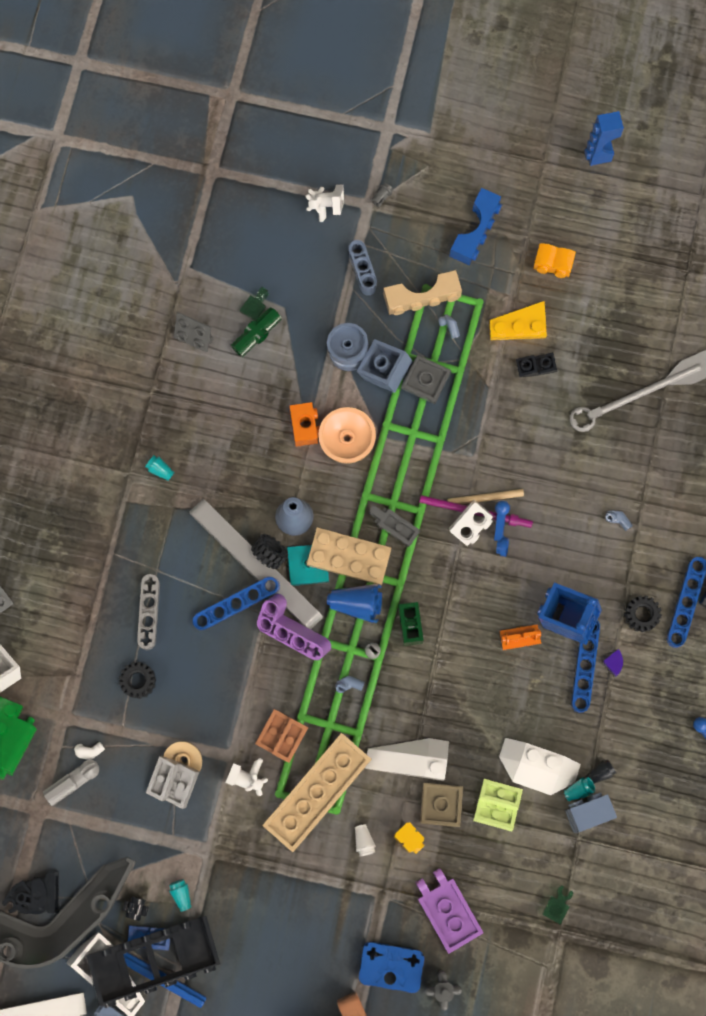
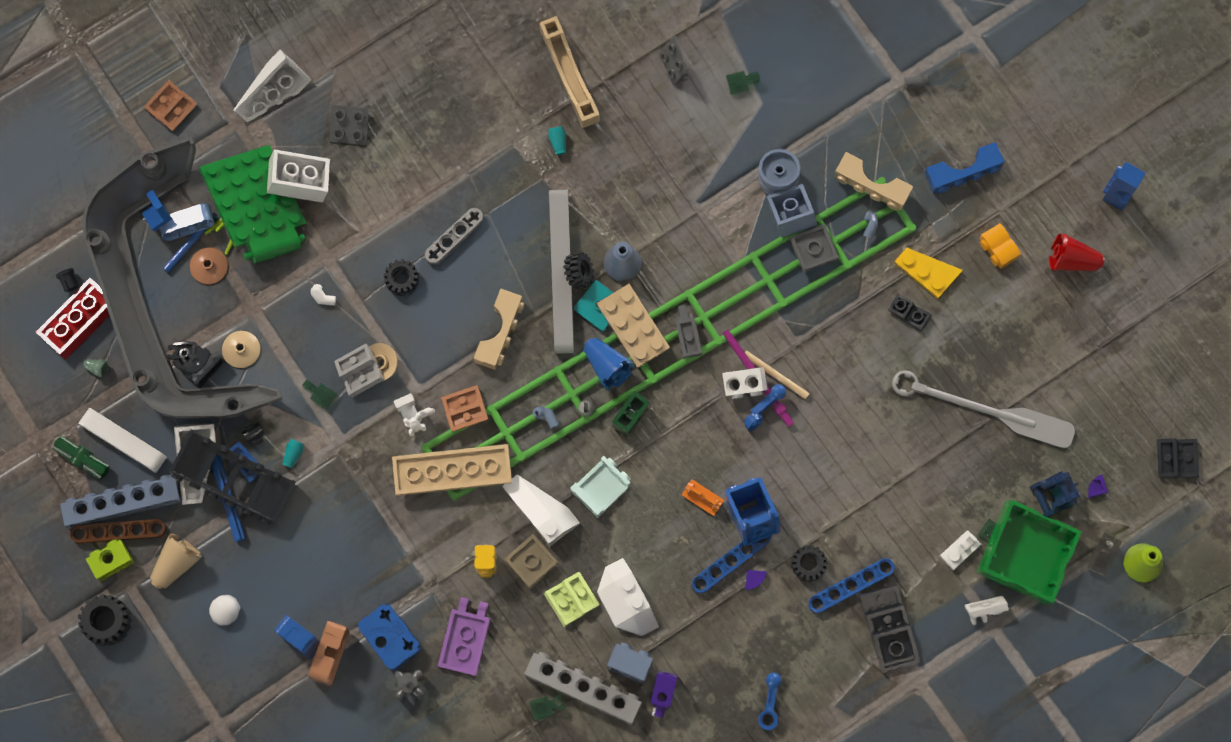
camera: 45 degrees right, 0 degrees up
(68, 784) = (290, 306): light grey piece -> none
(73, 851) = (245, 357): none -> tan dish
(98, 400) = (568, 72): none -> tan arch
(160, 828) = (321, 395): none -> clear green plate
(226, 604) = (528, 291): blue beam -> none
(241, 629) = (490, 351): none -> tan arch
(256, 332) = (722, 102): dark green piece -> none
(302, 413) = (697, 191): orange brick -> none
(314, 645) = (538, 339): medium lavender beam -> none
(321, 200) = (874, 54): white piece -> none
(345, 423) = (719, 225): light nougat dish -> none
(362, 275) = (848, 115): sand blue beam -> none
(364, 841) = (452, 535): white cone -> none
(439, 699) = (601, 486): none -> light aqua panel
(580, 789) = (640, 642): teal cone -> none
(601, 772) = (667, 645): black cone -> none
(611, 221) = (1074, 255): none -> red cone
(618, 517) = (860, 478): sand blue arm -> none
(622, 853) = (626, 714): none -> light grey brick
(629, 803) = (664, 683): none -> dark purple torso

